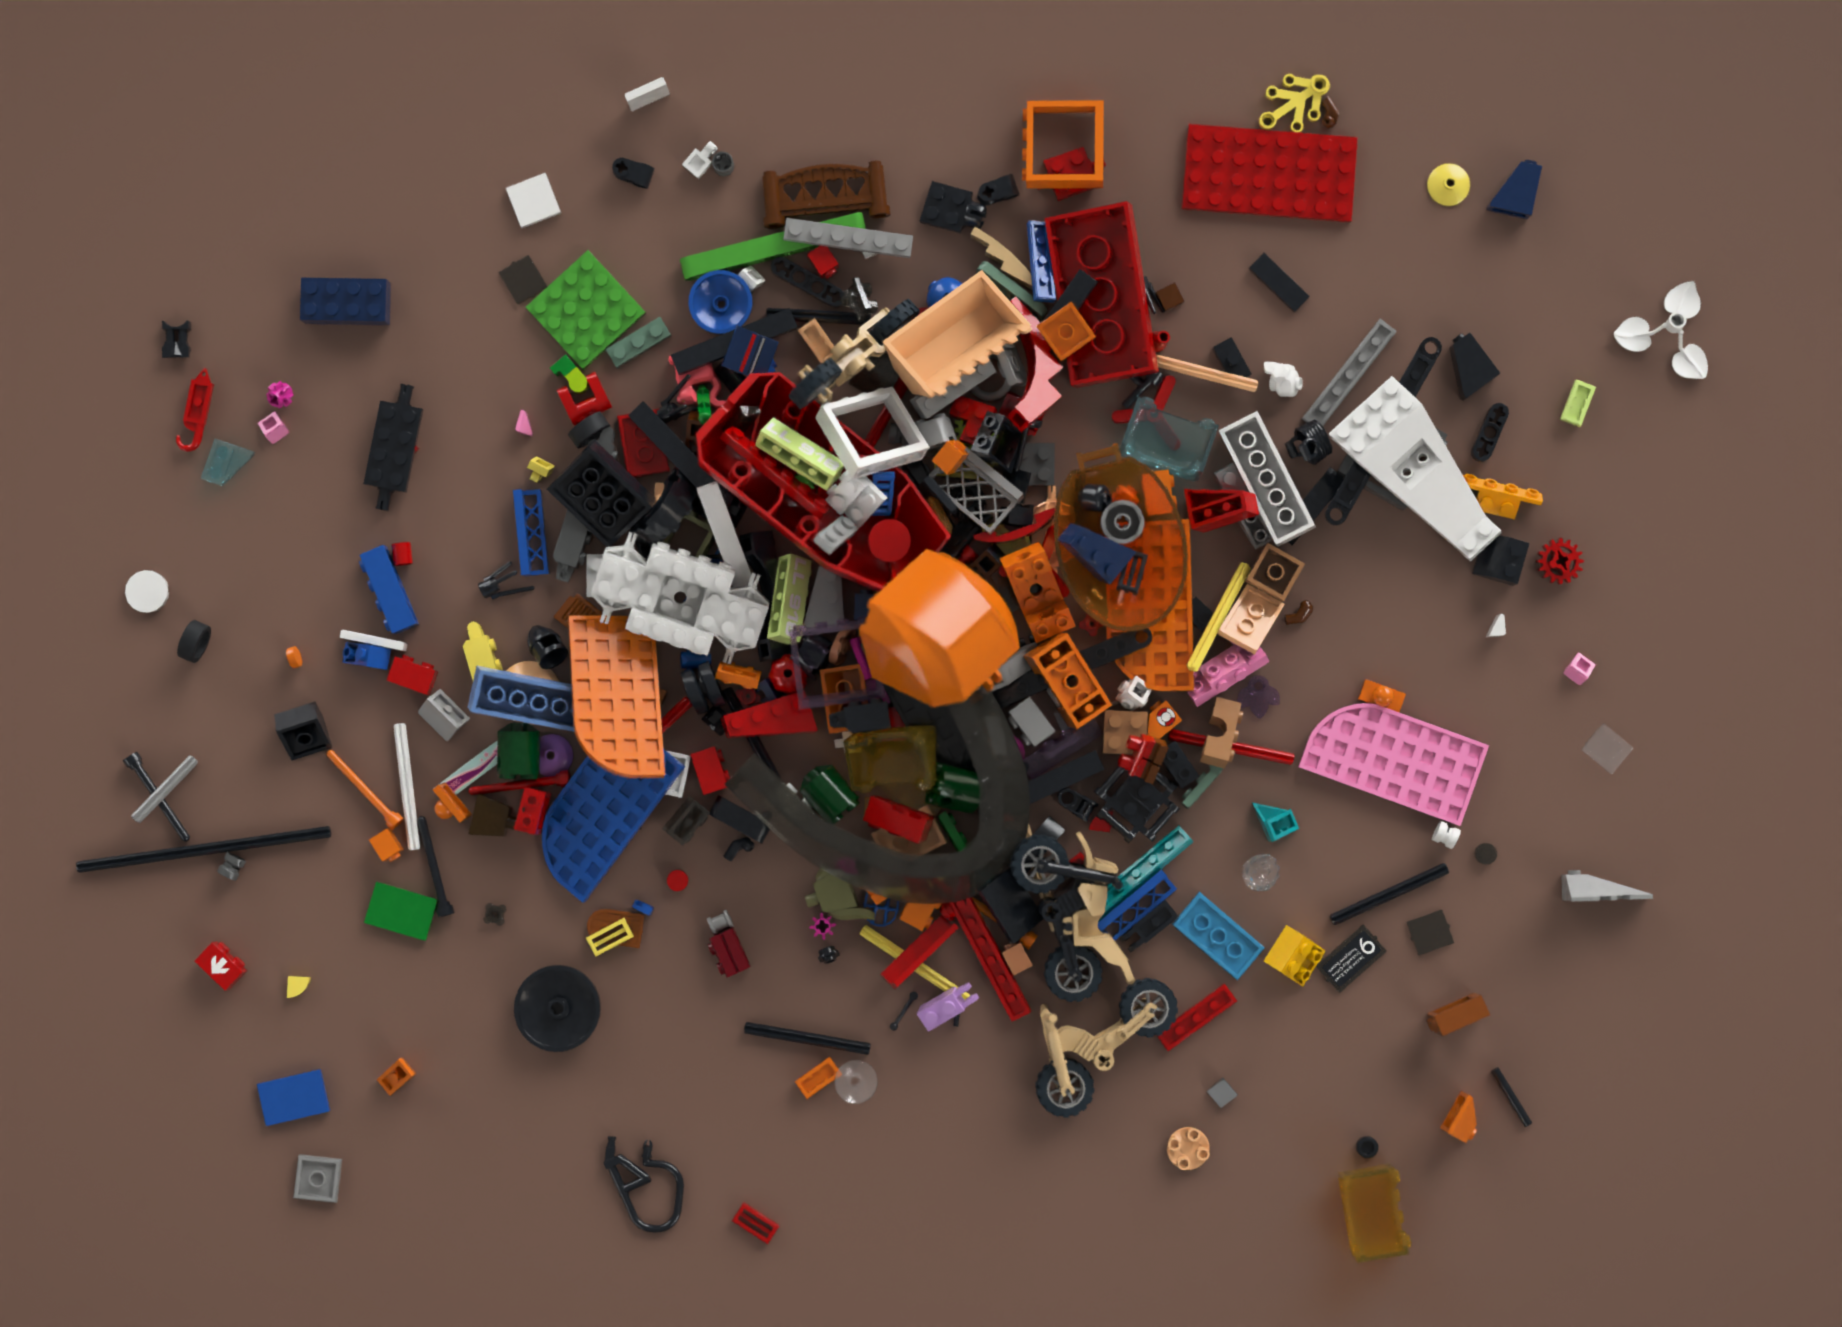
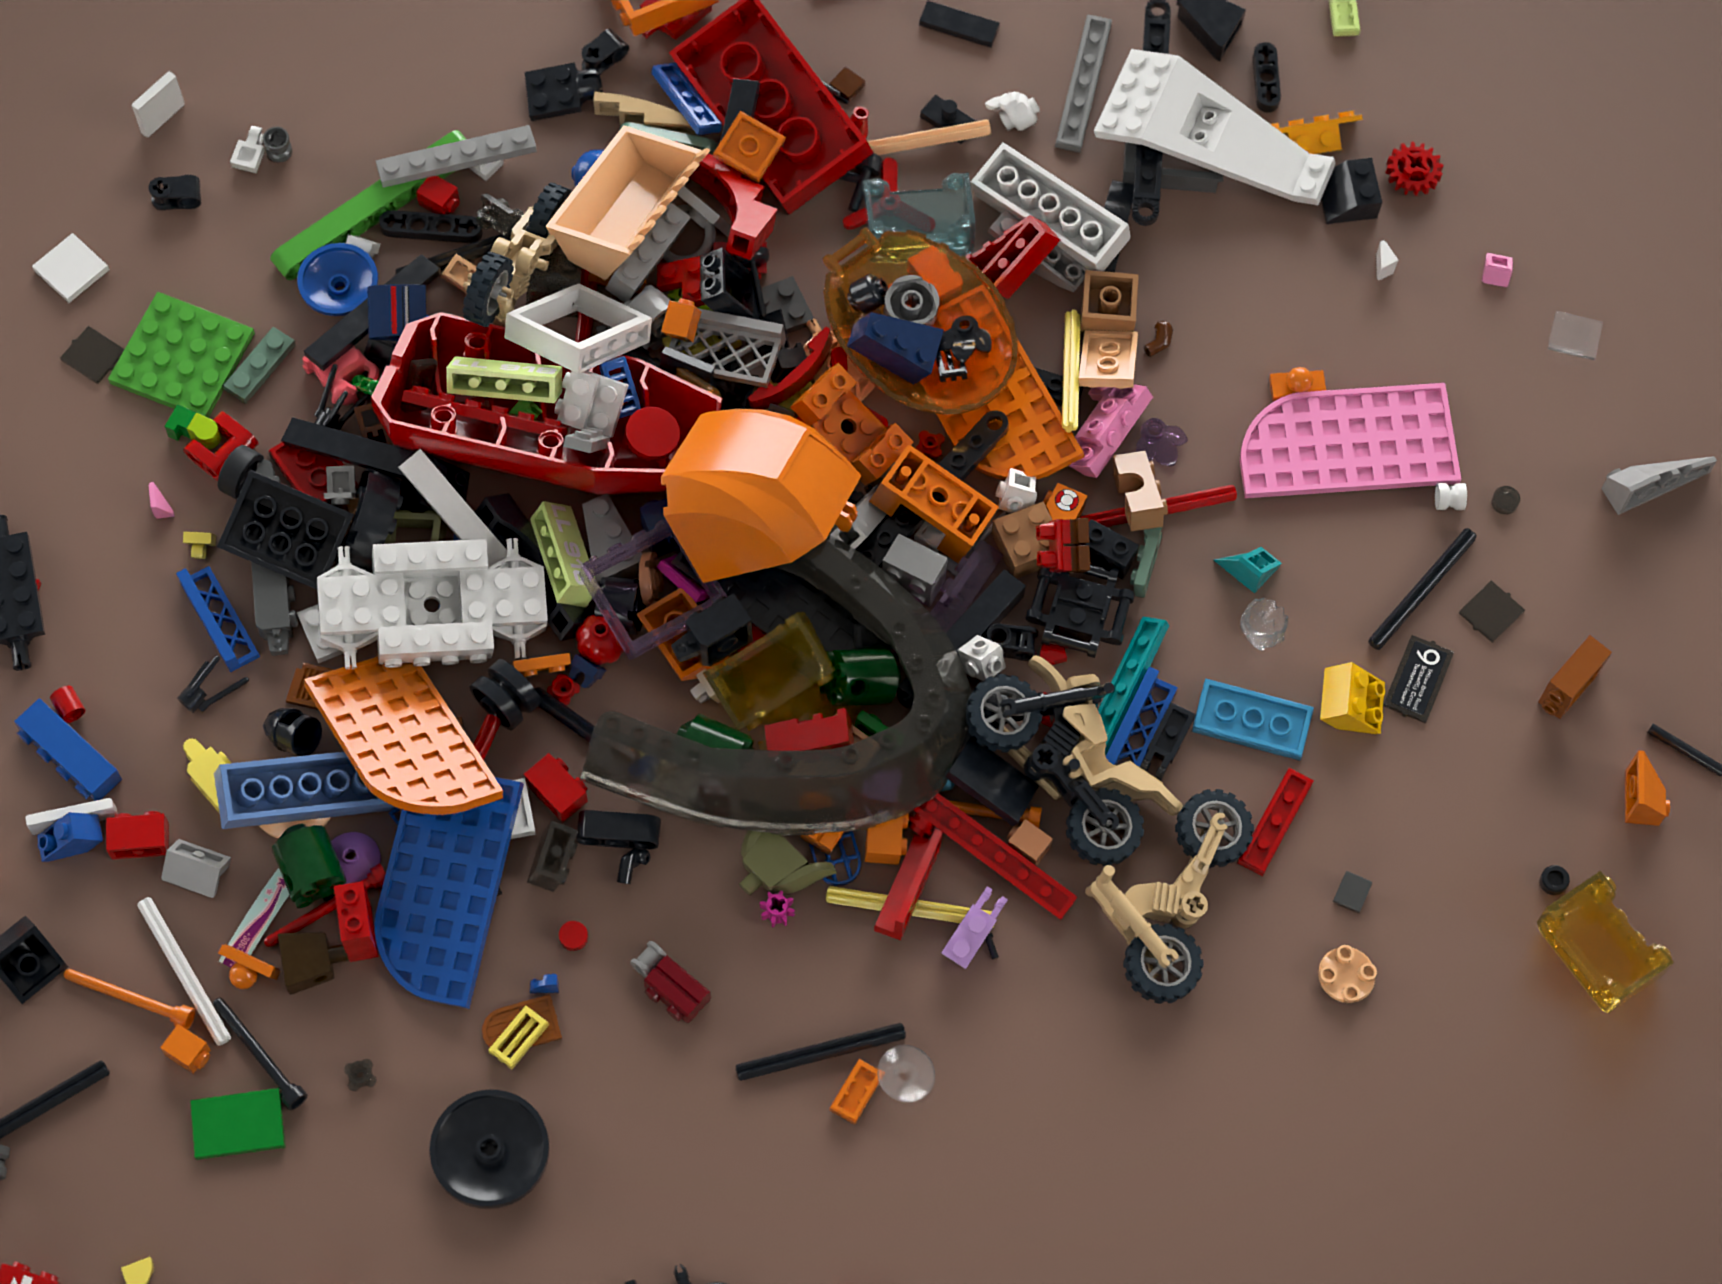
camera: 30 degrees left, 20 degrees down
(653, 475) = (340, 484): none -> light grey bracket
(692, 660) = (473, 672): blue cone -> none
(713, 720) = (539, 732): black slope -> none
(770, 719) = (613, 686): red wedge -> none
(779, 204) = (461, 112): reddish brown piece -> none
(828, 955) = (799, 939): black plate -> none
(913, 996) = (926, 946): black hinge -> none
(1046, 811) = (982, 658): none -> white brick
(1147, 568) = (965, 341): none -> black plate
(1314, 444) = (1080, 154): black piece -> none

